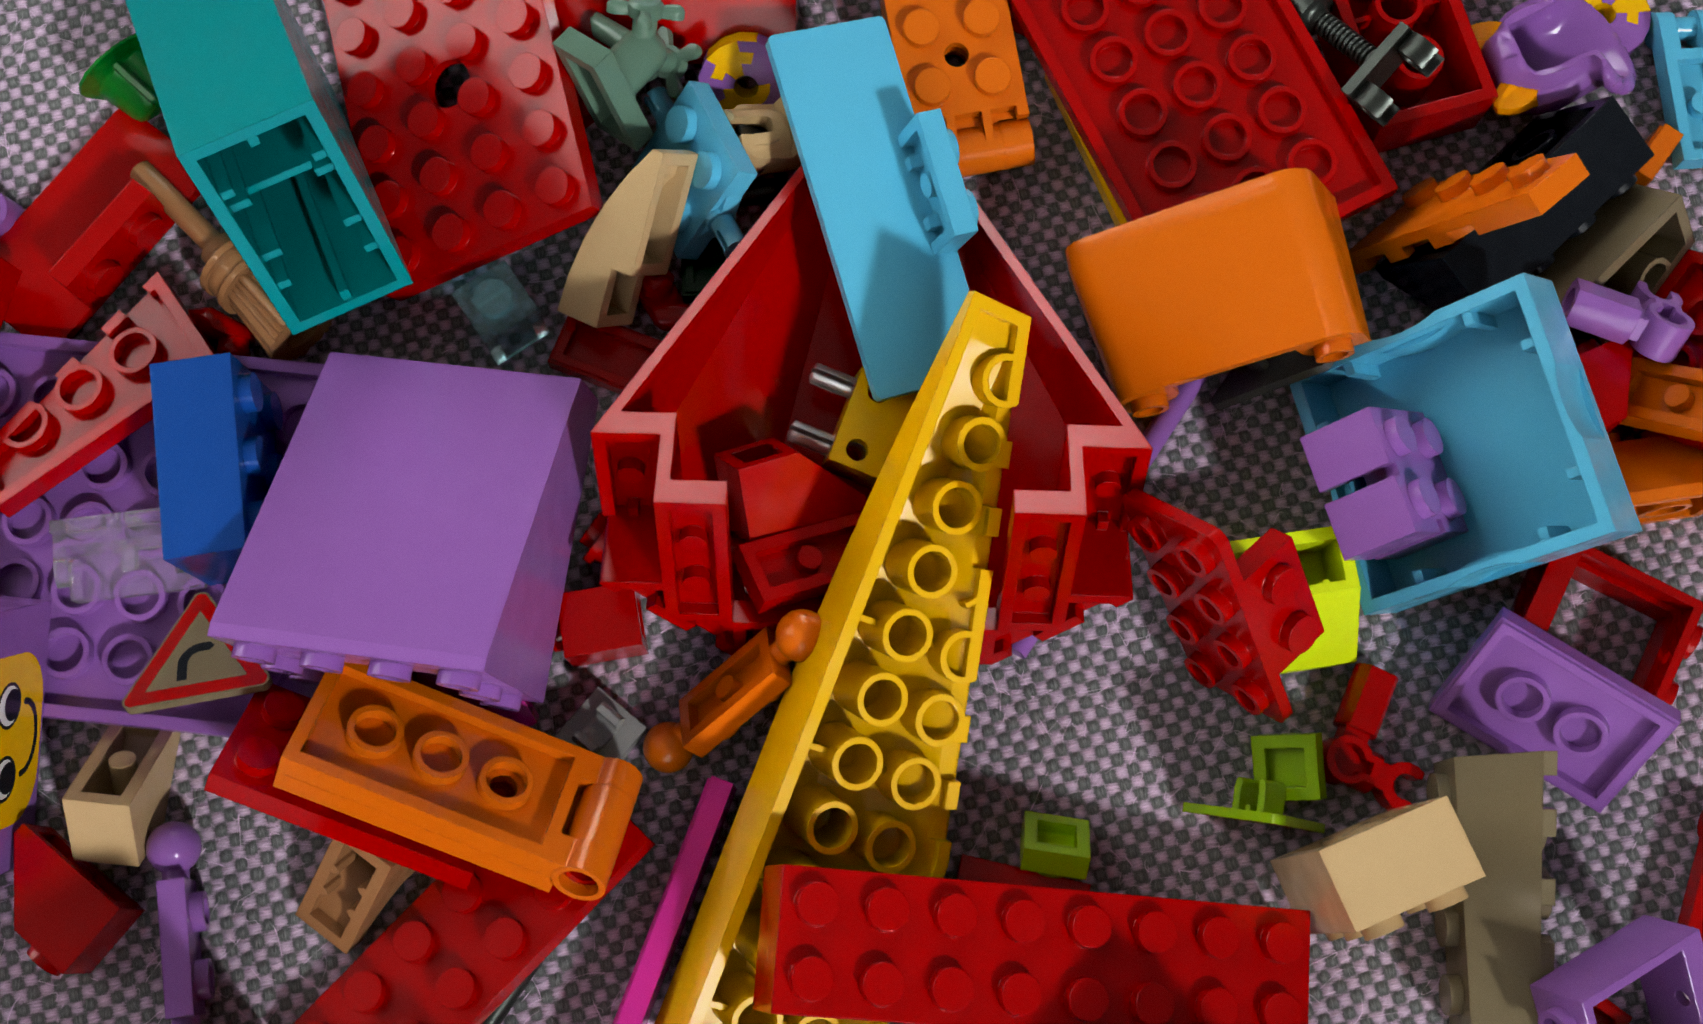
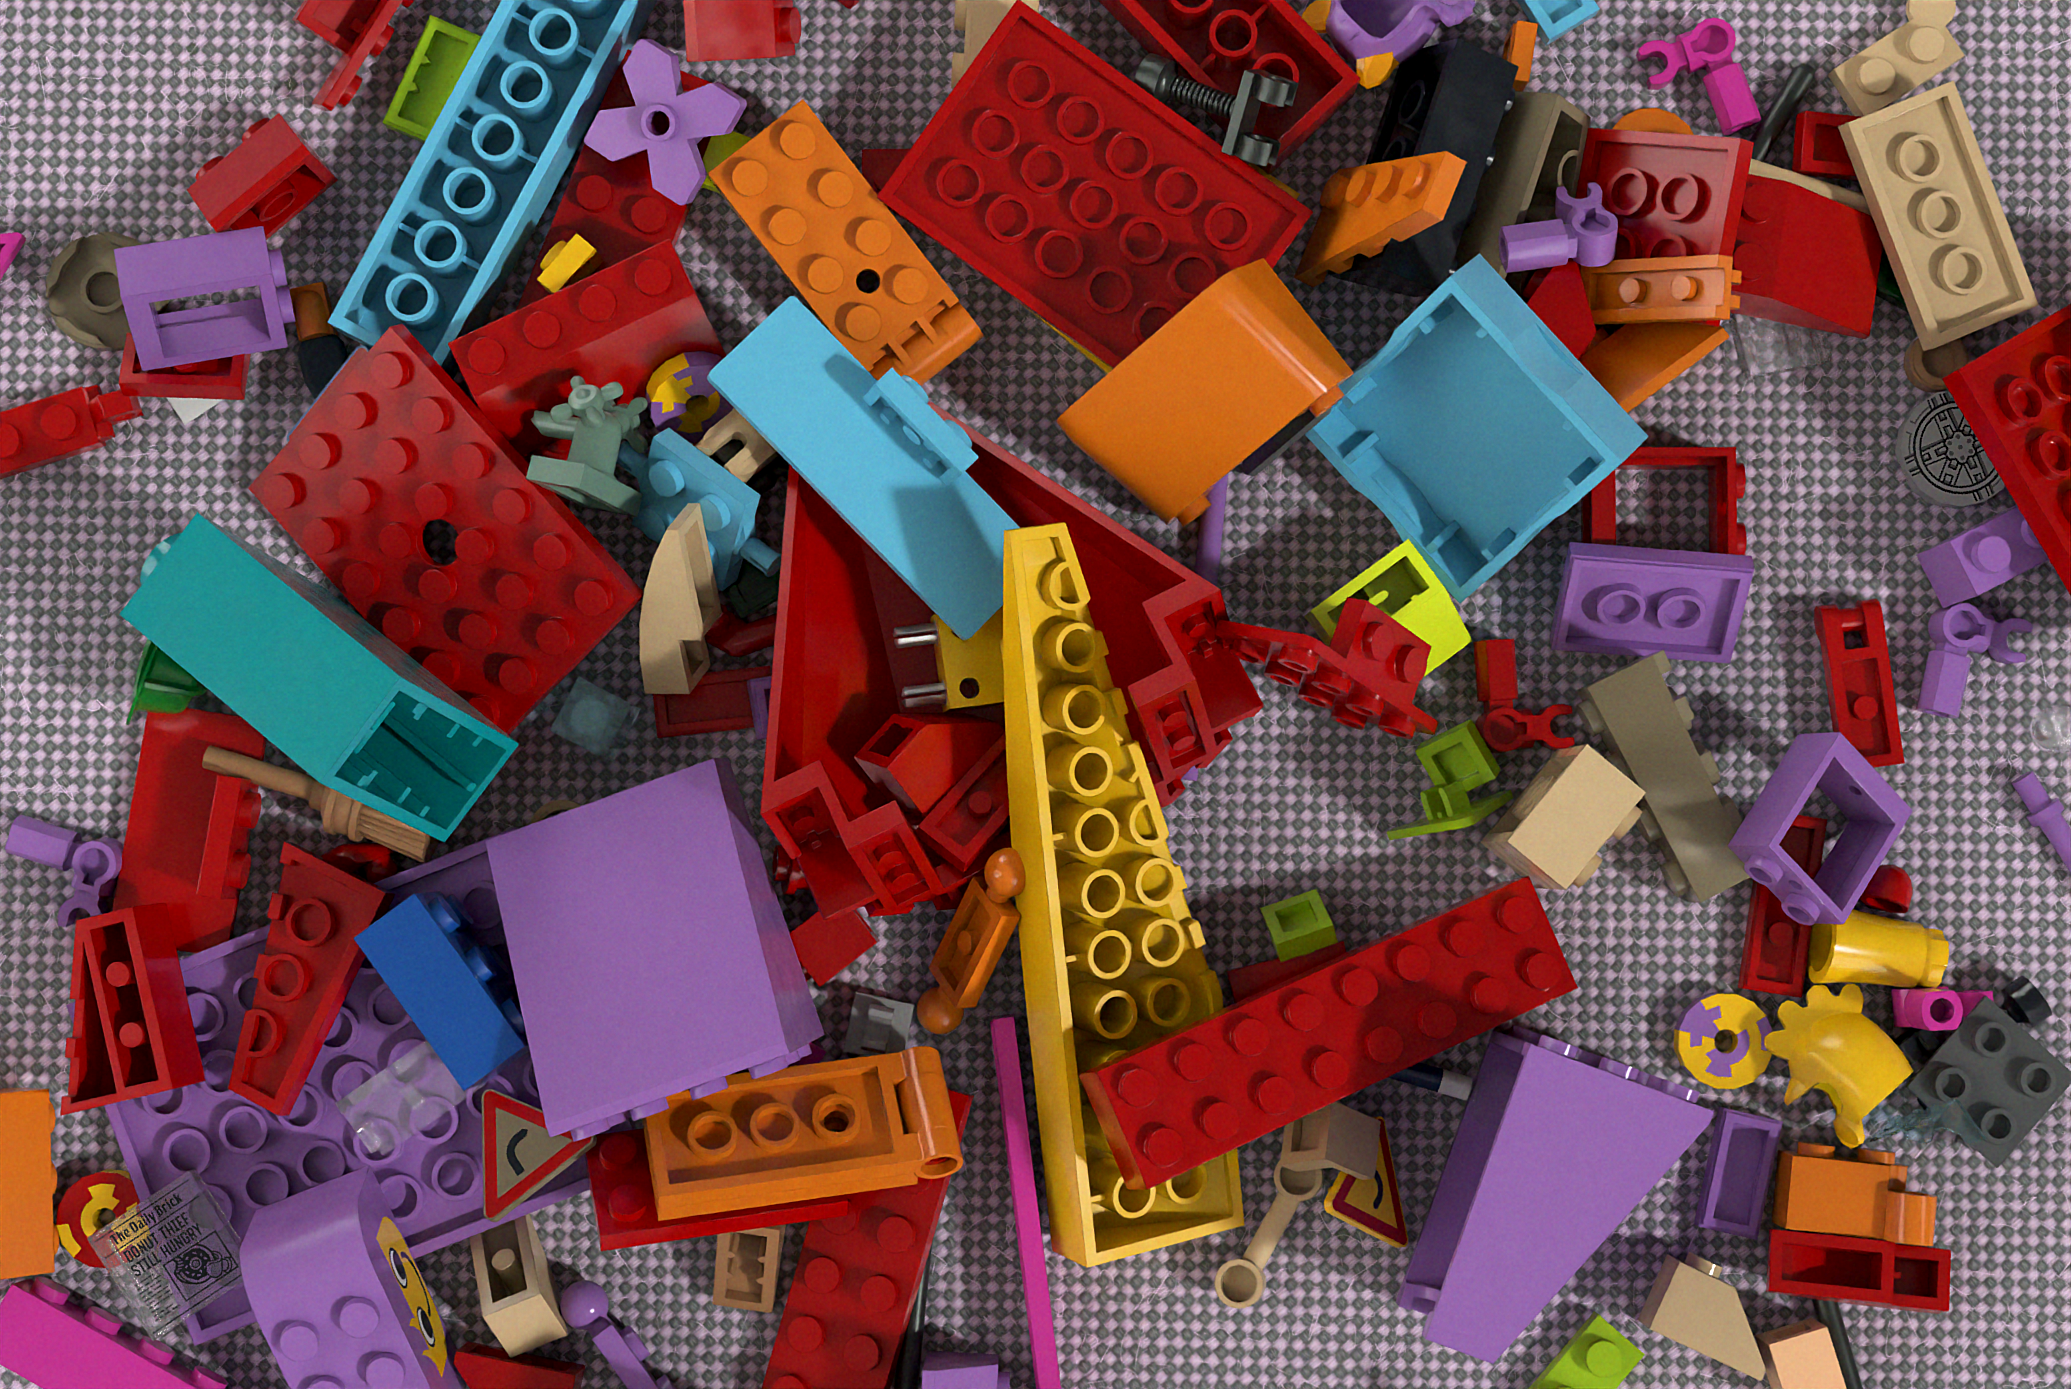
camera: 25 degrees left, 10 degrees up
(1407, 491) = (1444, 469): medium lavender piece -> none

